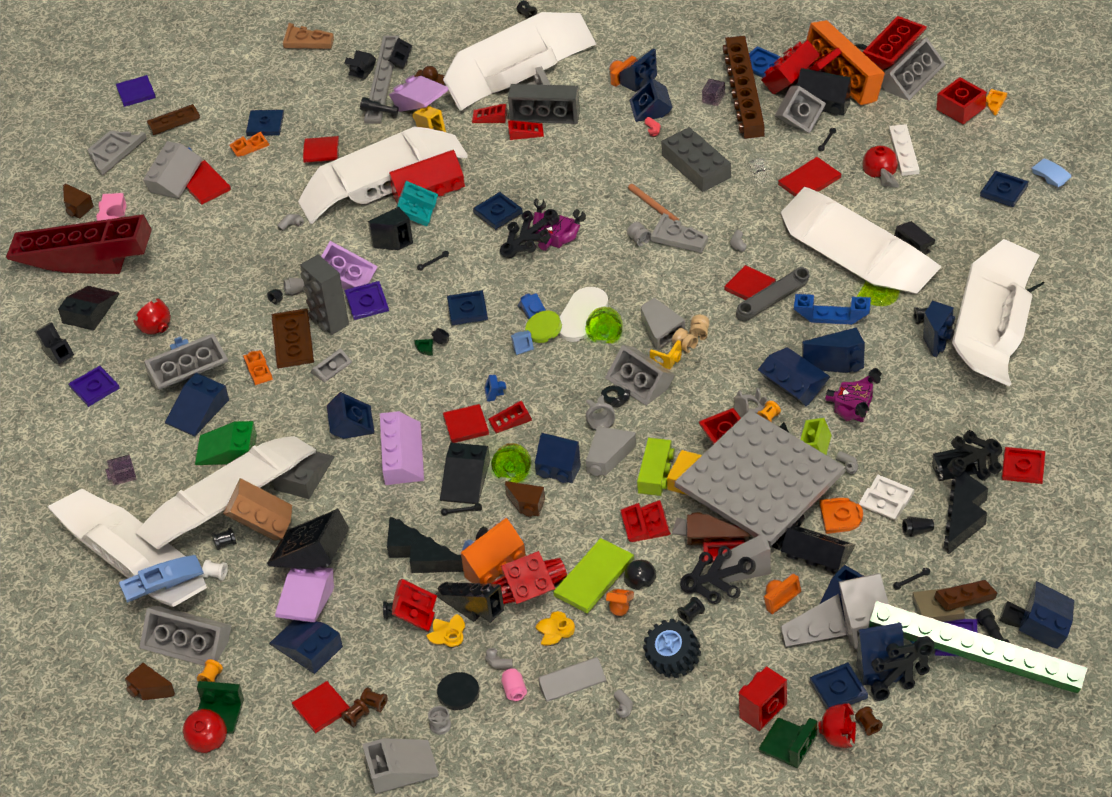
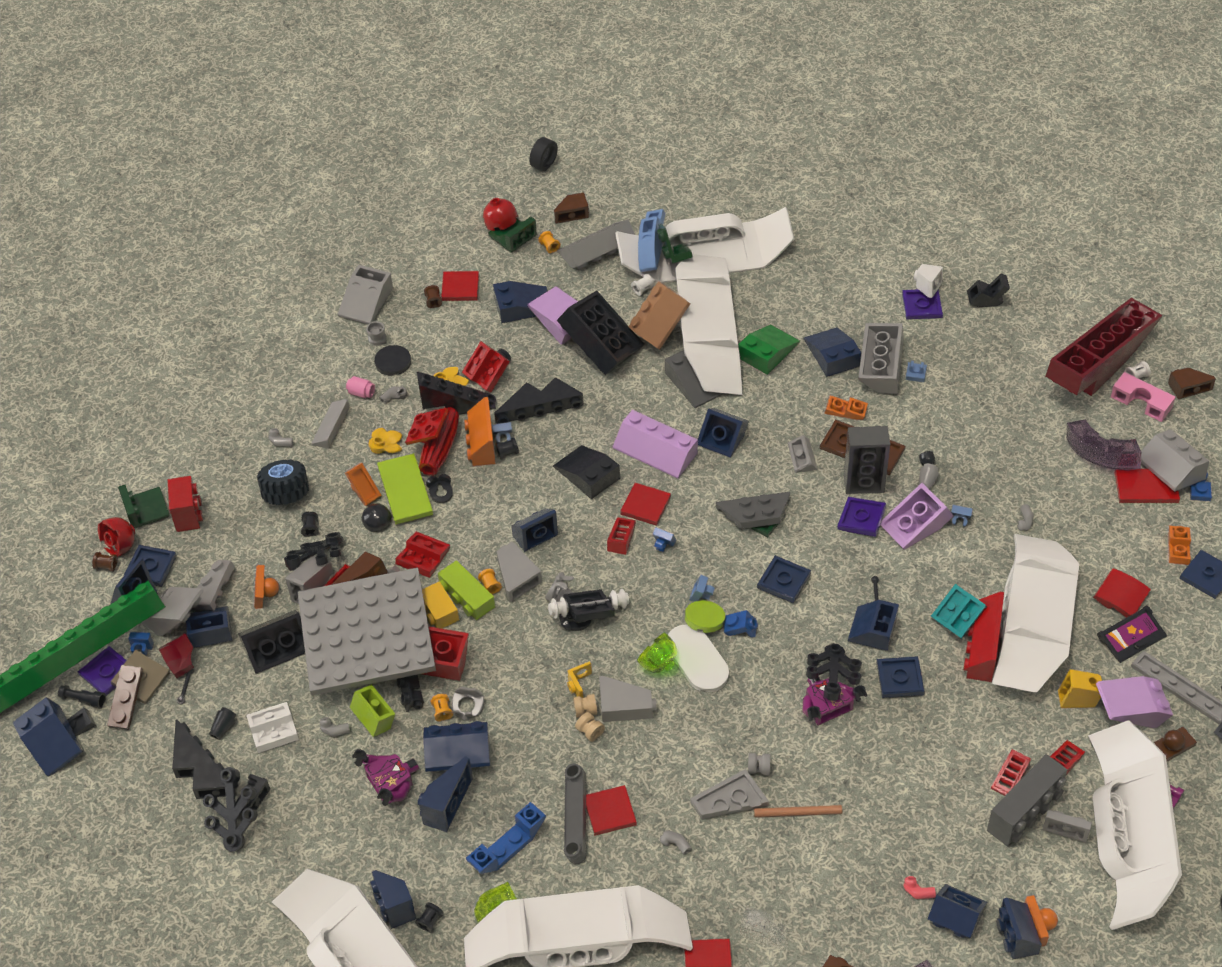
camera: 125 degrees right, 5 degrees up
(68, 384) = (928, 279): none -> white slope
(87, 307) = (1027, 335): black slope -> none
(87, 740) = (543, 154): none -> black tyre
(120, 470) = (800, 276): clear purple brick -> none
(153, 318) = (964, 363): red cylinder -> none
(165, 546) = (678, 252): none -> dark green bracket
(192, 212) = (1102, 452): none -> brick
(316, 248) = (961, 512): none -> medium blue tile
(353, 130) = (1137, 629): none -> door
(366, 104) = (1158, 657): black piece -> none
(374, 699) = (433, 311): reddish brown bush -> none
(391, 230) = (932, 570): black slope -> none
(414, 355) = (755, 510): none -> dark grey wing
(440, 336) = (764, 539): black plate -> none
(466, 237) = (874, 624): none -> dark blue slope
(477, 507) = (565, 441): black hinge -> none
(511, 459) = (566, 500): clear neon green cylinder -> none
(525, 497) = (522, 489): reddish brown slope -> none
(563, 554) = (443, 480): none -> black piece
(599, 382) = (589, 605): none -> black plate
(632, 460) = (489, 581): none -> light orange bush
(639, 374) = (577, 648): light grey slope -> none
(696, 159) = (824, 883): dark grey brick -> none
(840, 515) = (290, 684): orange tile -> none
(897, 591) = (178, 655): none -> dark red slope
(920, 648) = (100, 597): black plant -> none
(1023, 465) = (196, 853): red tile -> none

